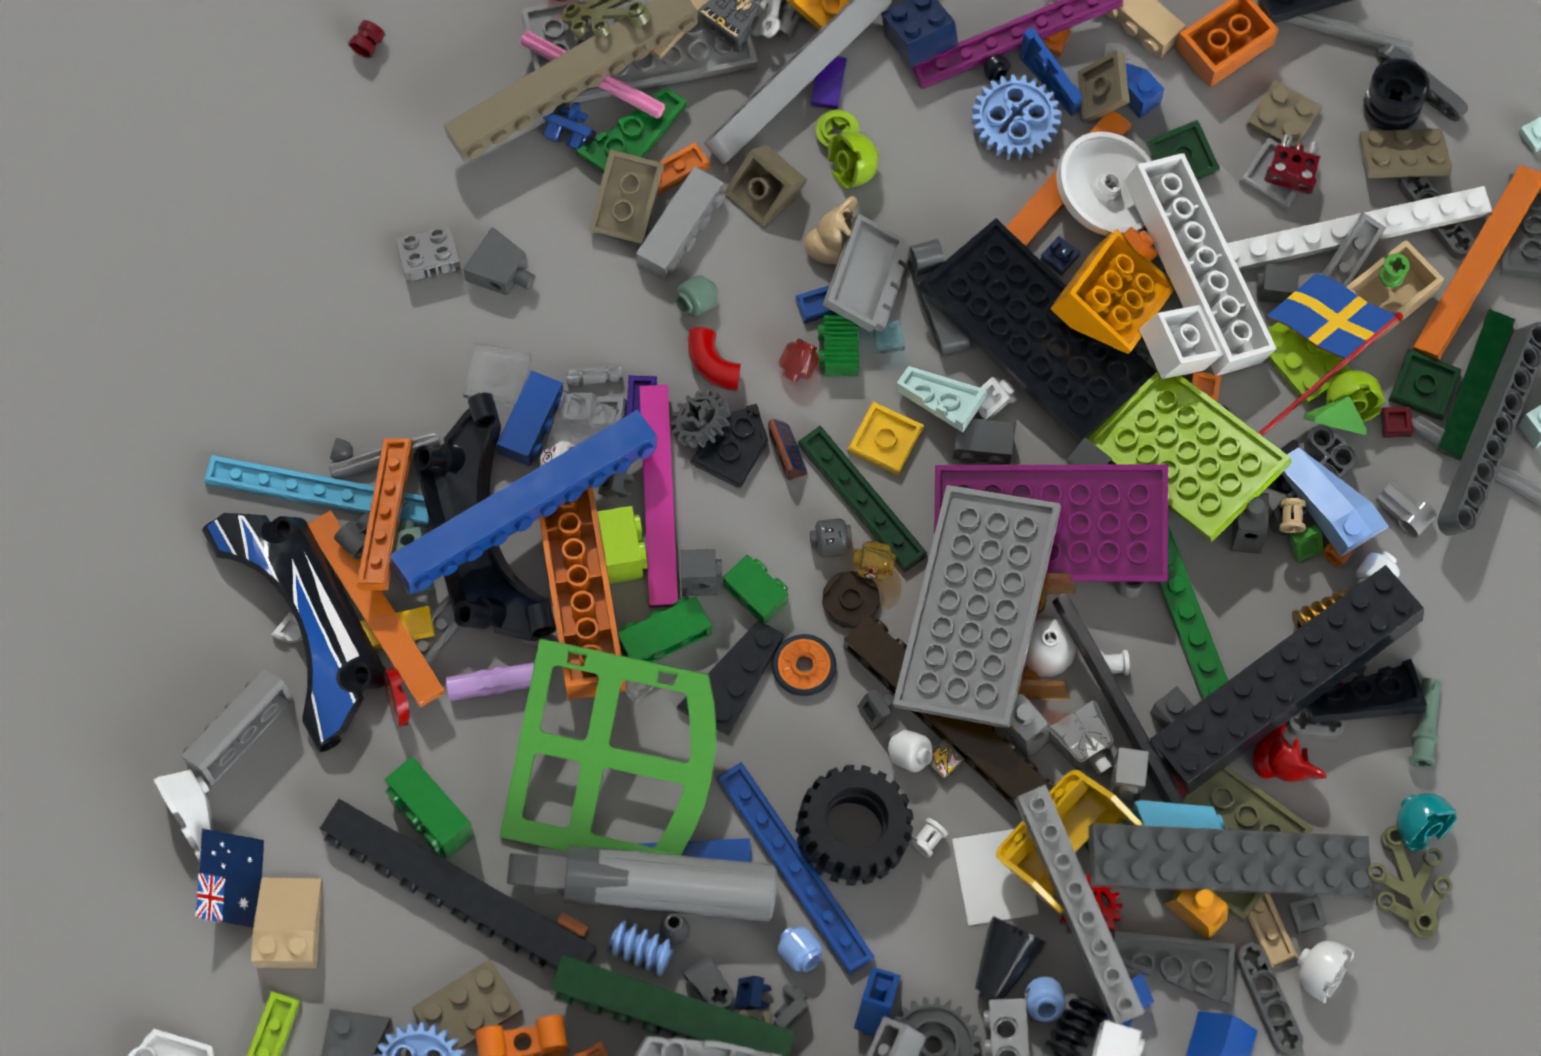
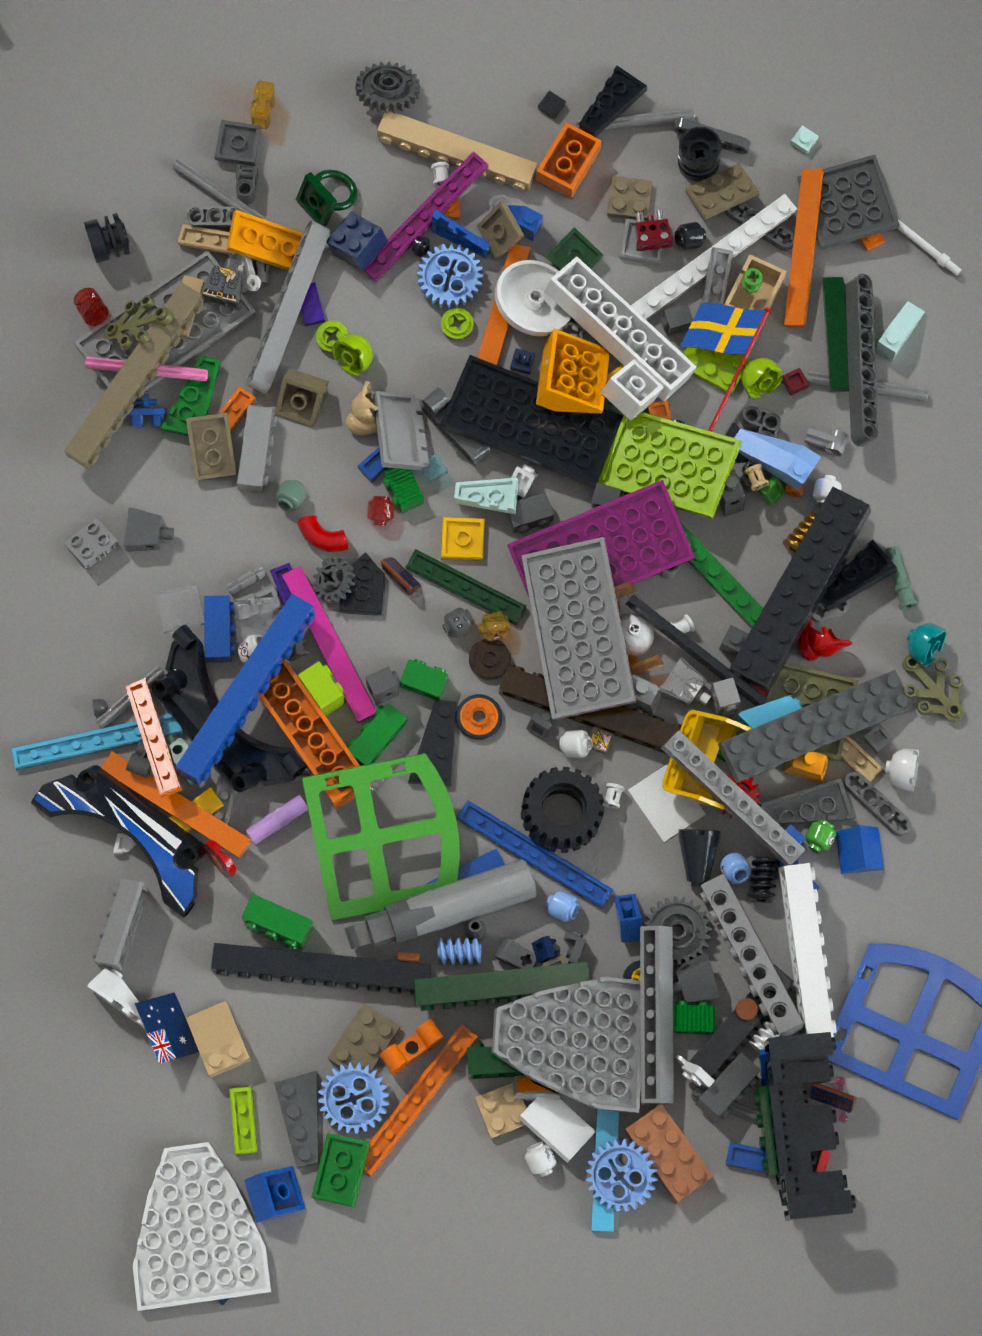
camera: 25 degrees left, 5 degrees up
(1008, 170) = (460, 315): none -> lime gear
(1141, 243) = (575, 331): orange plate -> none
(1175, 1007) = (820, 836): none -> bright green head
(1338, 414) = (756, 395): bright green slope -> none
(1340, 190) = (690, 236): none -> black head
(1425, 384) = (802, 347): dark green tile -> none

